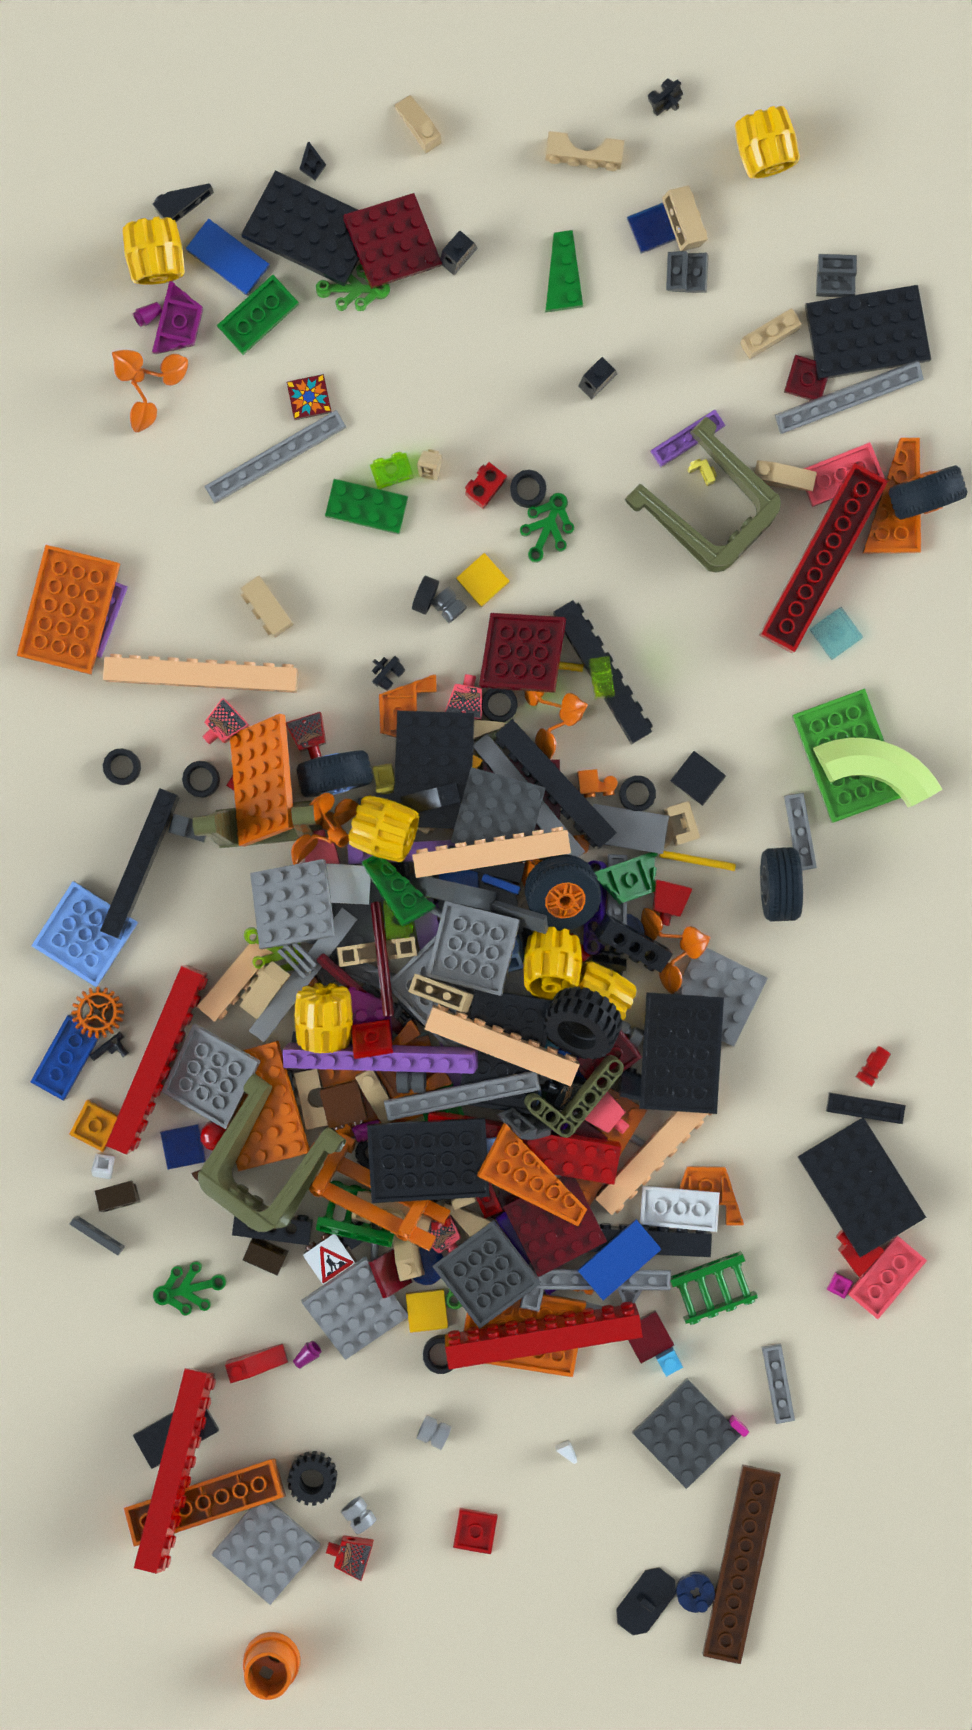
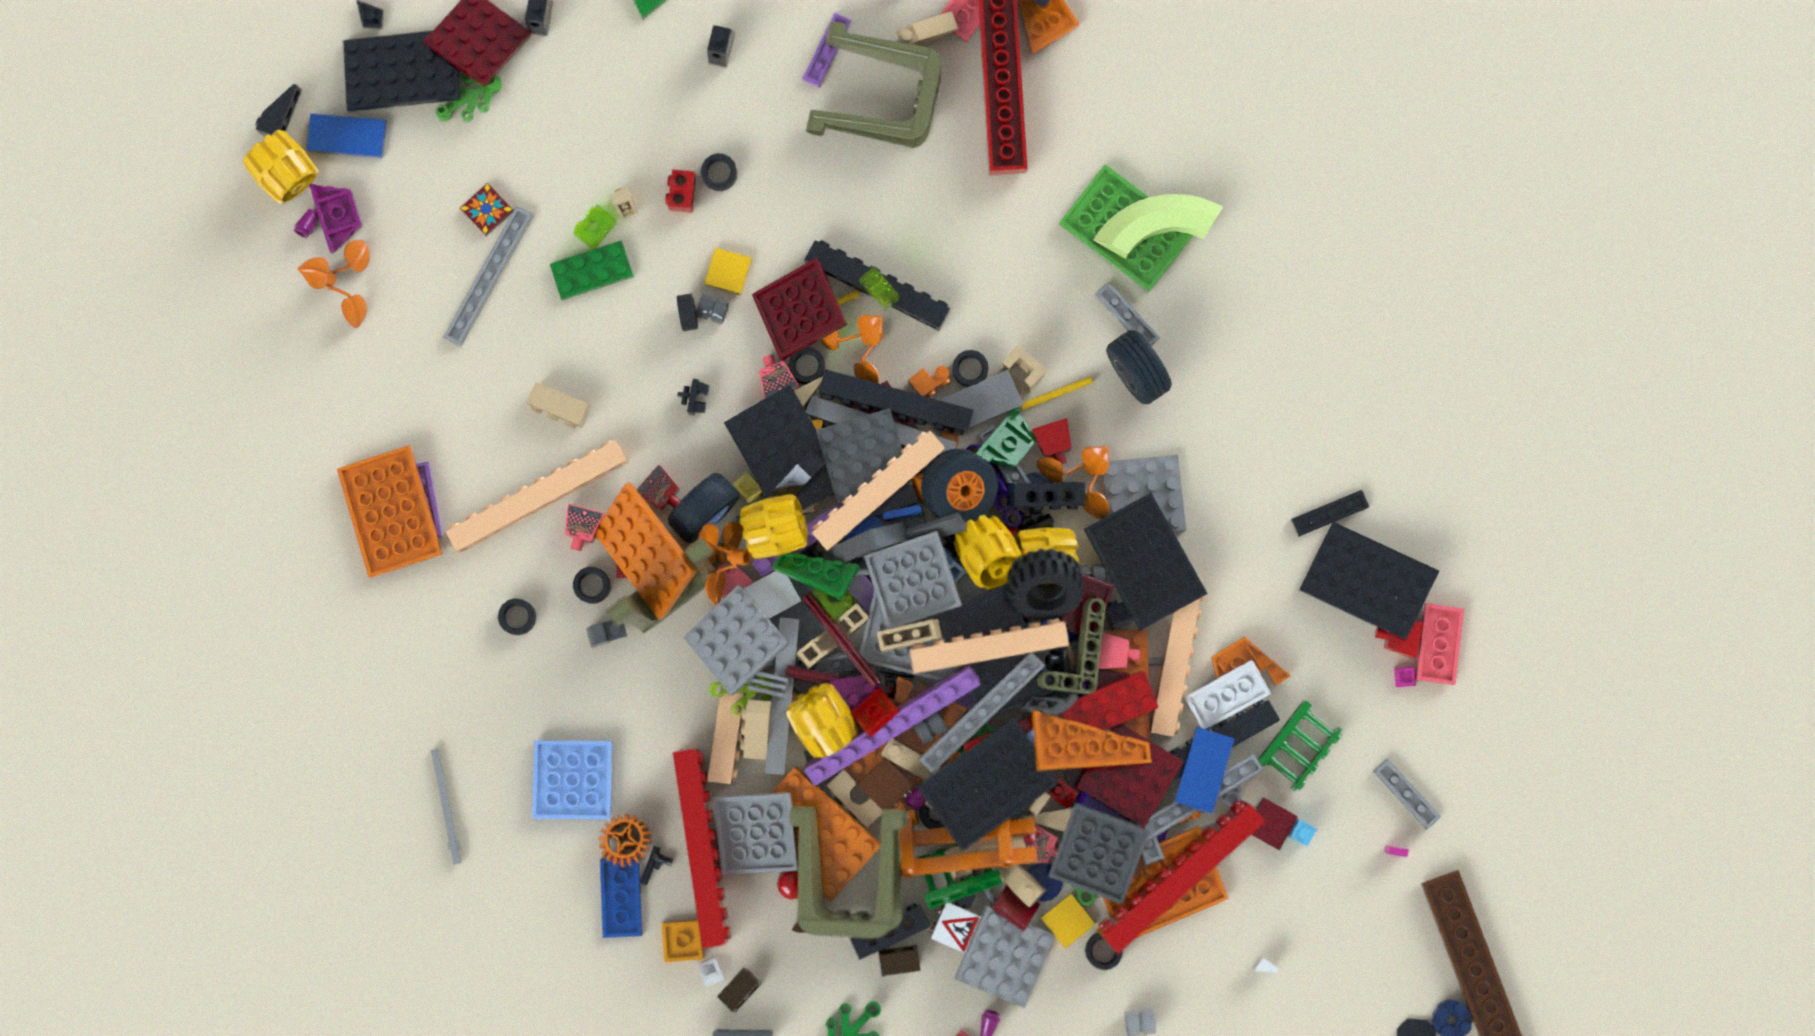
camera: 30 degrees left, 5 degrees down
(140, 863) = (583, 689): black brick -> none
(183, 1146) = (769, 911): clear blue tile -> none
(258, 314) = (401, 167): green plate -> none
(402, 699) = (721, 411): orange wing -> none
(548, 524) = (755, 192): green plant -> none
(686, 1433) = (1356, 886): dark grey plate -> none
(698, 778) = (1013, 324): black slope -> none
(707, 472) = (860, 67): light yellow bracket -> none
(836, 633) = (1052, 133): clear light blue tile -> none
(874, 1065) = (1314, 473): red axle -> none

